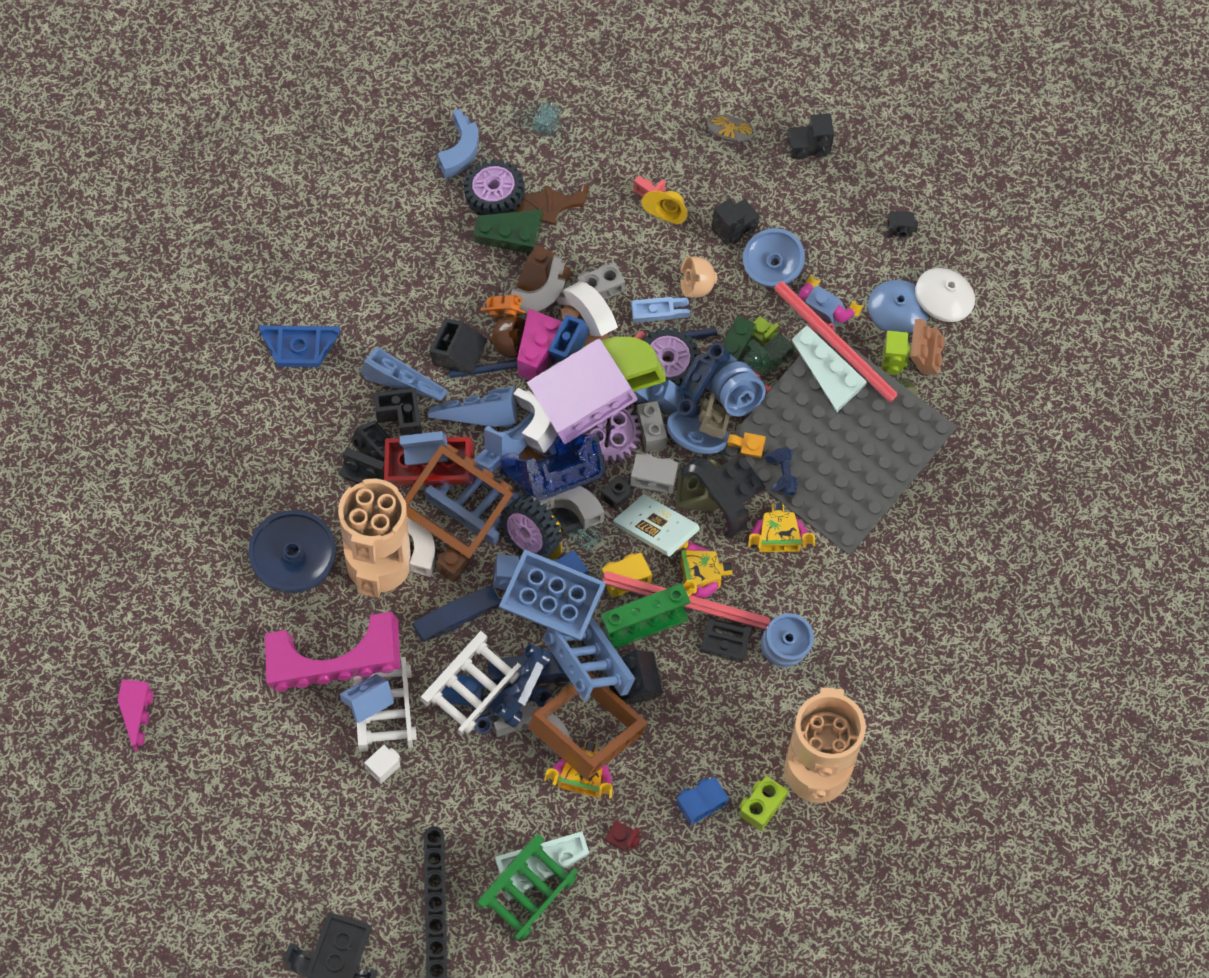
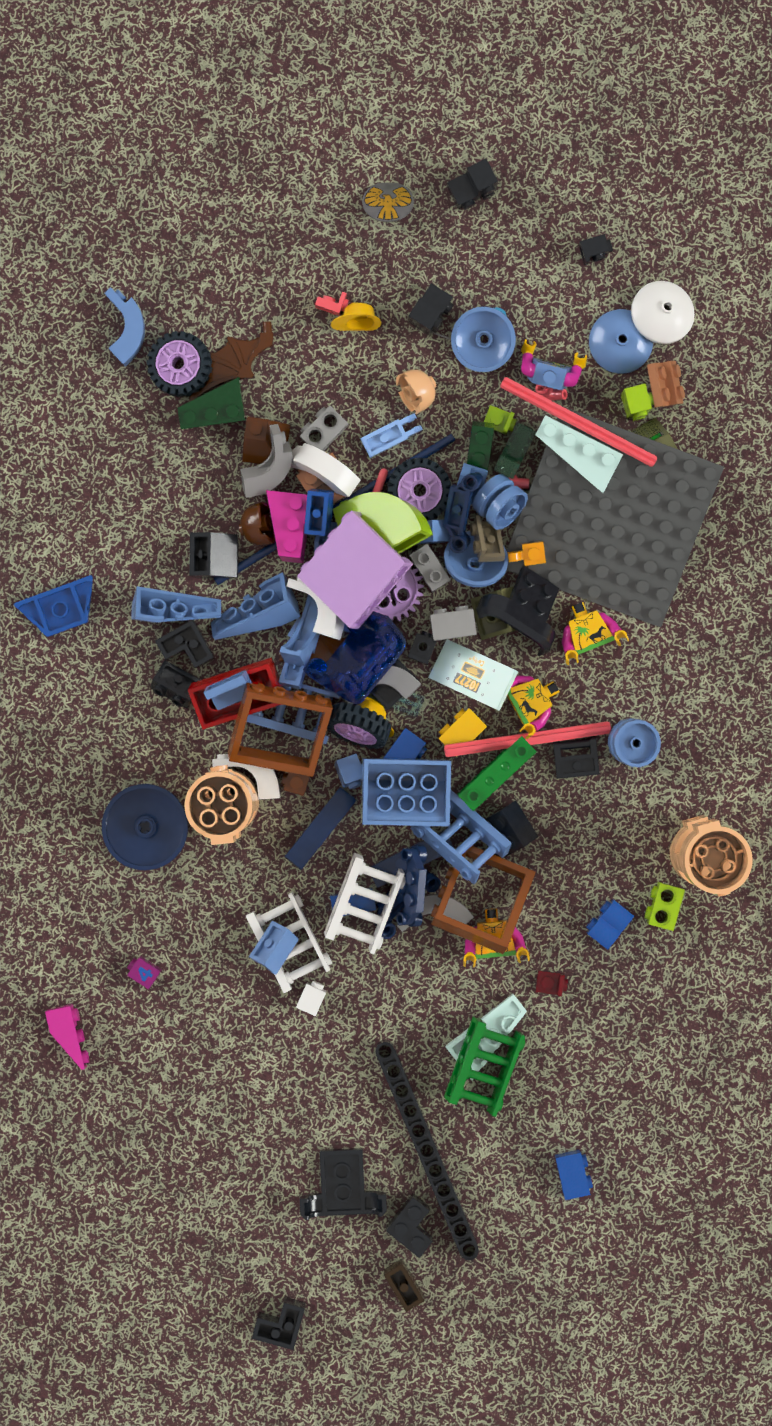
camera: 20 degrees left, 25 degrees up
(232, 681) = (143, 971): none -> magenta brick
(361, 467) = (174, 718): black bracket -> none
(374, 654) = (266, 905): dark pink arch -> none
(498, 306) = (234, 498): orange hinge -> none
(546, 119) = (200, 261): clear light blue brick -> none
(786, 483) = (580, 581): dark blue piece -> none

